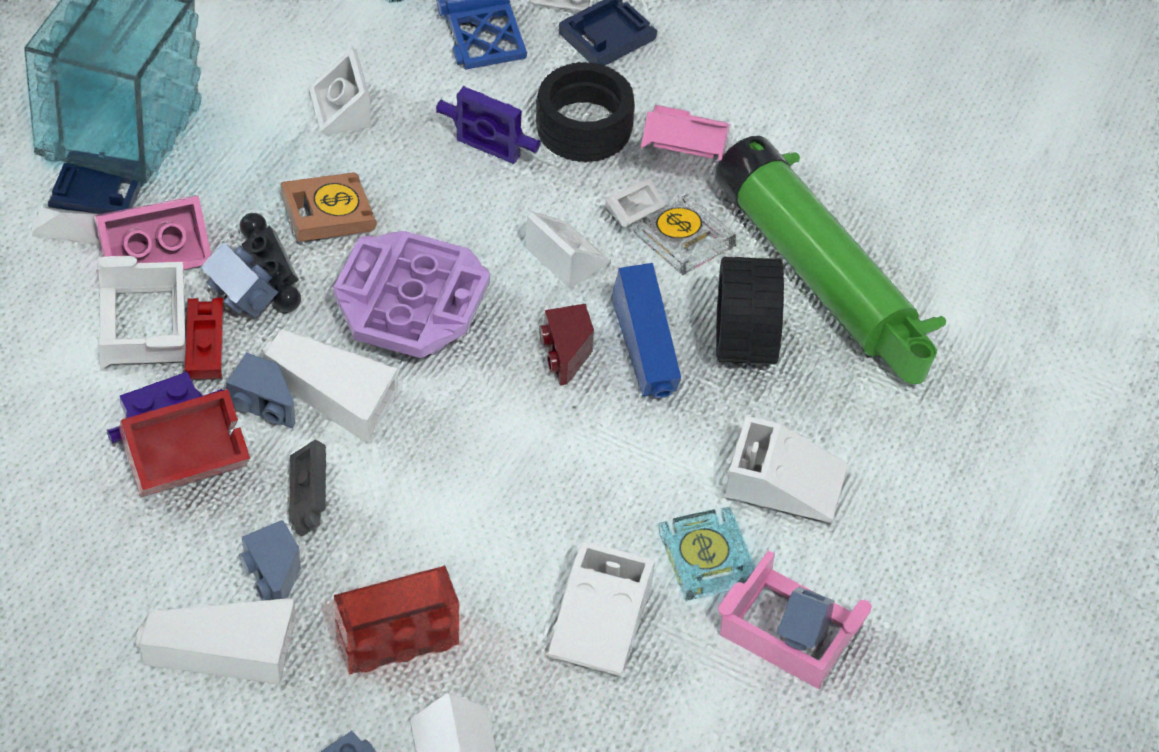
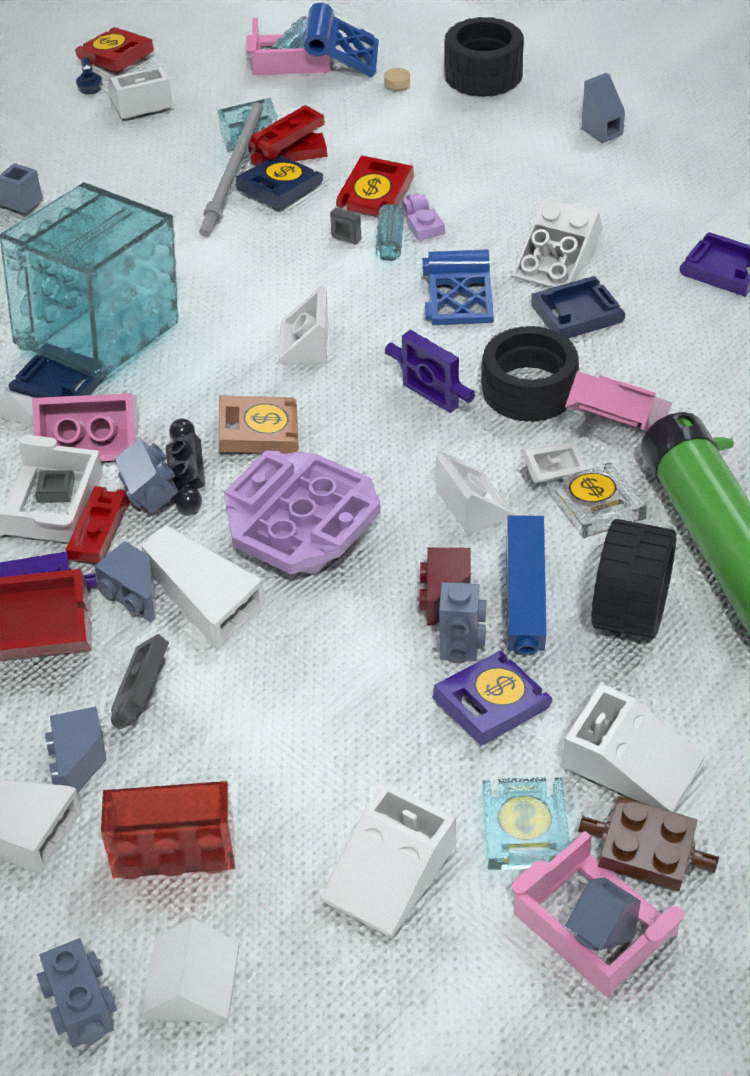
camera: 20 degrees right, 5 degrees down
(141, 305) = (55, 486): none -> dark grey tile
(599, 378) = (459, 621): none -> sand blue brick
(649, 436) = (498, 690): none -> dark purple container
(819, 550) = (648, 843): none -> plate

